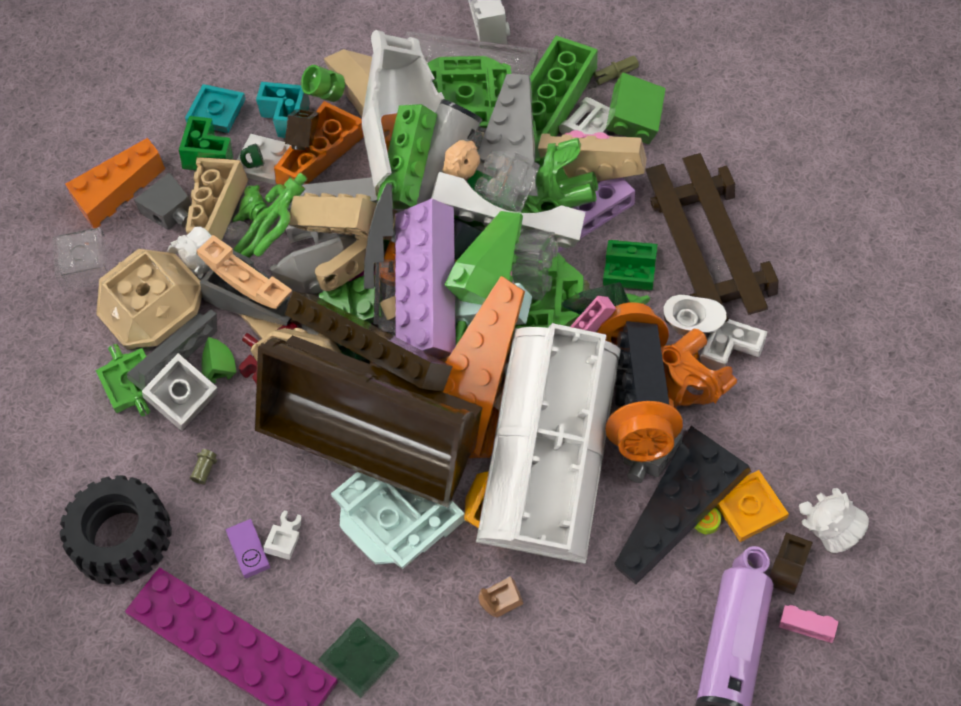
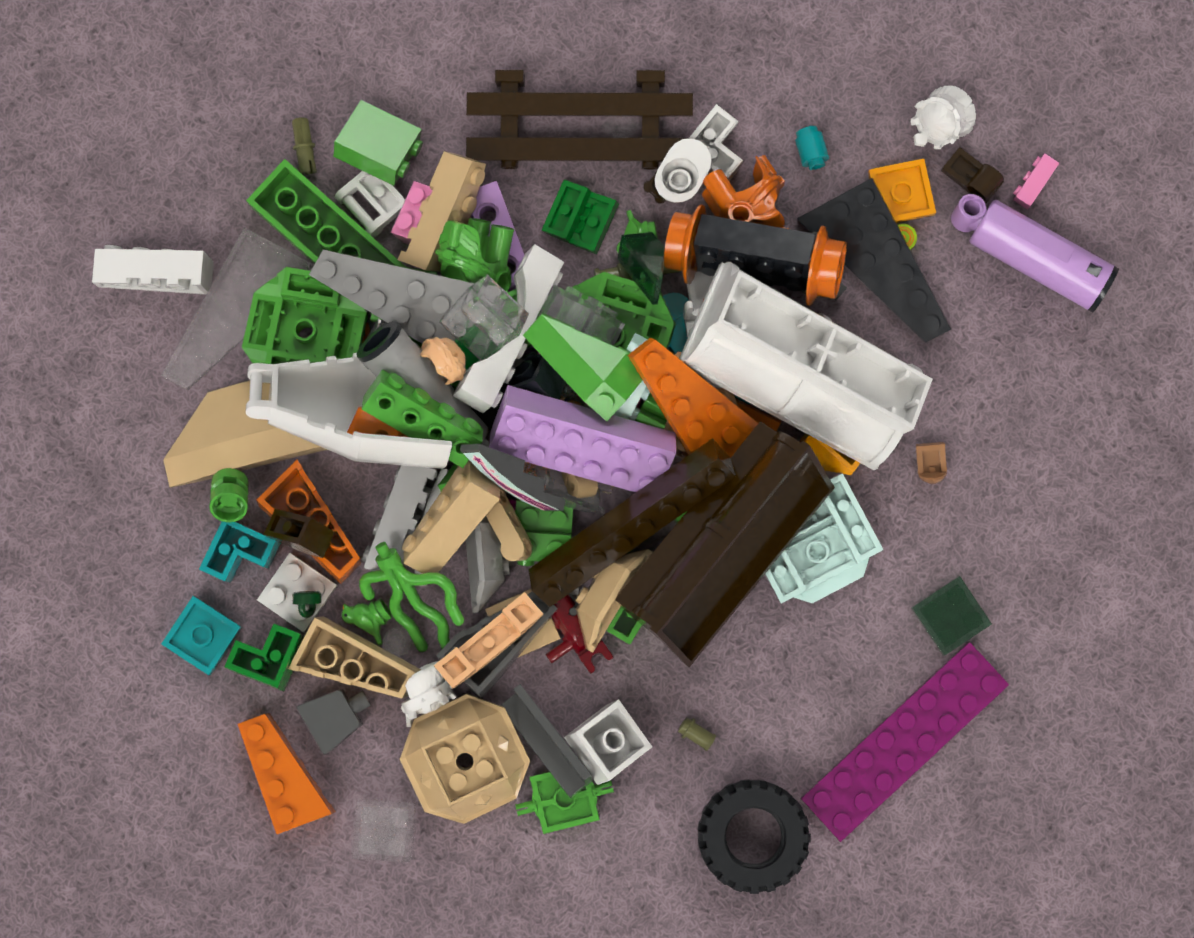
camera: 80 degrees left, 25 degrees up
(217, 360) = (569, 697): bright green brick -> none
(247, 548) = (803, 704): medium lavender tile -> none
(283, 539) = (806, 665): white plate -> none
(595, 314) = (676, 279): bright pink piece -> none
(760, 419) = (811, 147): none -> teal brick

